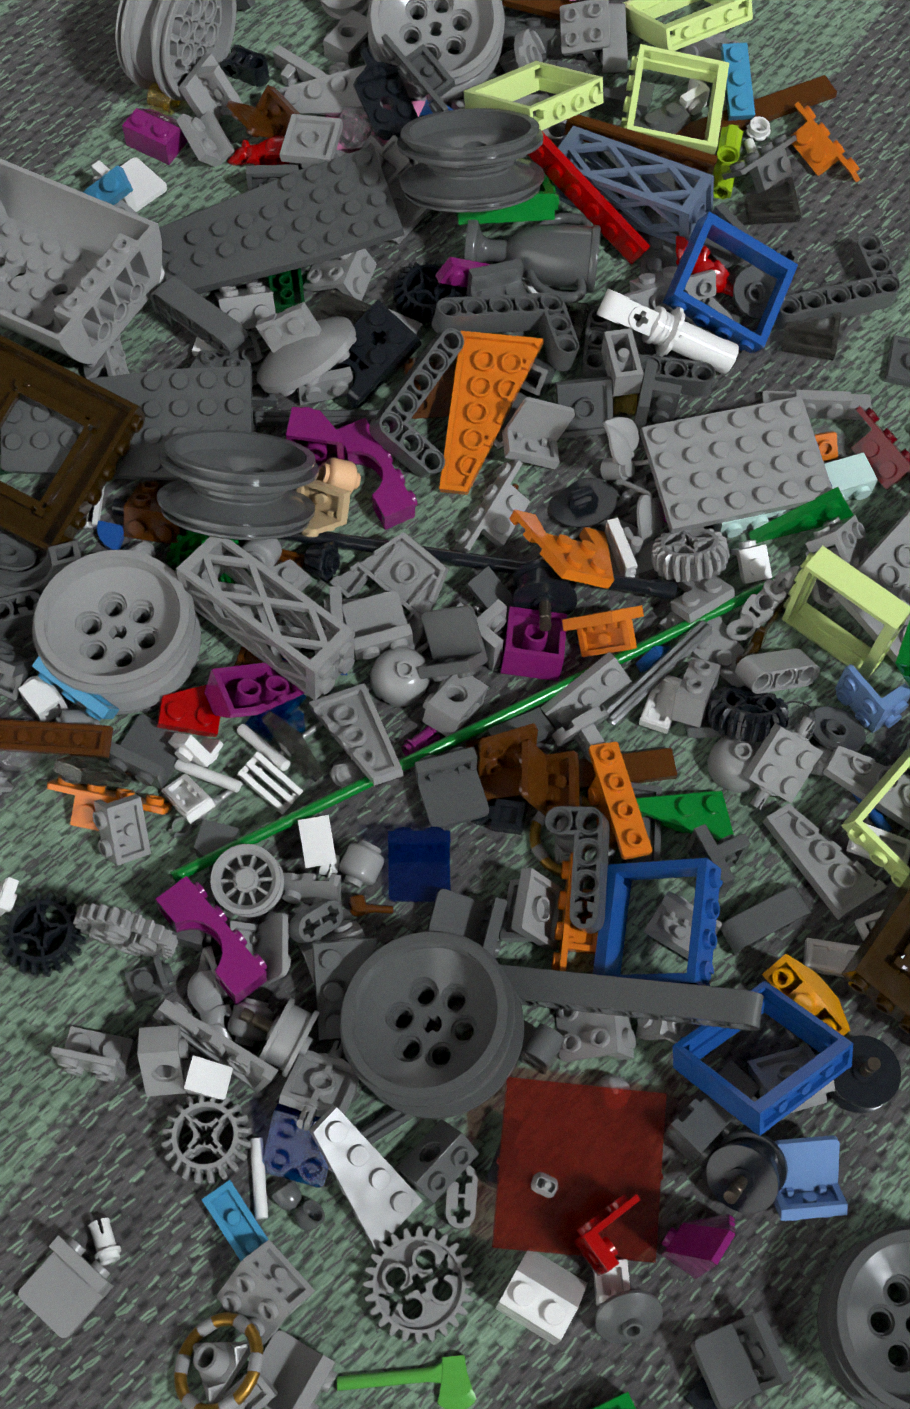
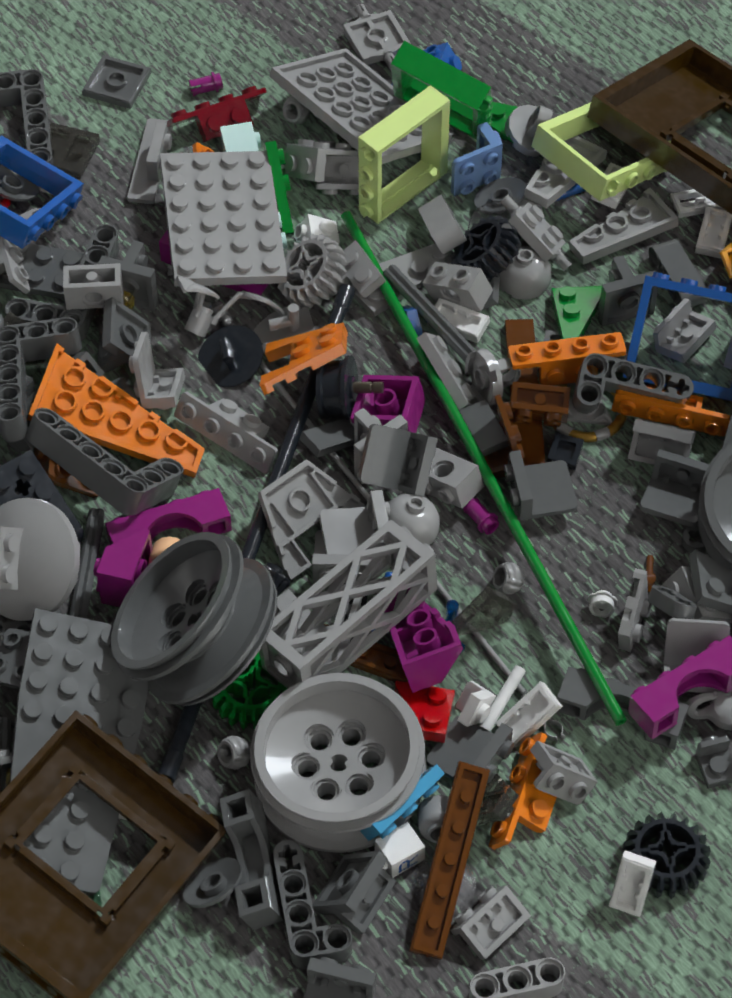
camera: 80 degrees left, 10 degrees down
(110, 535) = (203, 783): blue tile -> none
(125, 931) = (680, 758): light grey gear -> none
(144, 516) = (181, 732): reddish brown bracket -> none
(247, 880) = (632, 650): light grey wheel -> none
(258, 757) = (528, 633): white tile -> none
(263, 747) = (477, 646): white piece -> none
(317, 841) = (588, 599): white slope -> none
(359, 731) = (479, 551): light grey wing -> none
(361, 864) = (608, 571): light grey head -> none
(418, 864) = (611, 527): clear blue bracket -> none
(605, 630) = (384, 344): orange bracket -> none
(620, 548) = (290, 326): white tile -> none
(670, 331) = (59, 246): white piece -> none
(760, 607) = (375, 226): light grey animal -> none
(760, 635) = (404, 233): dark brown sword -> none

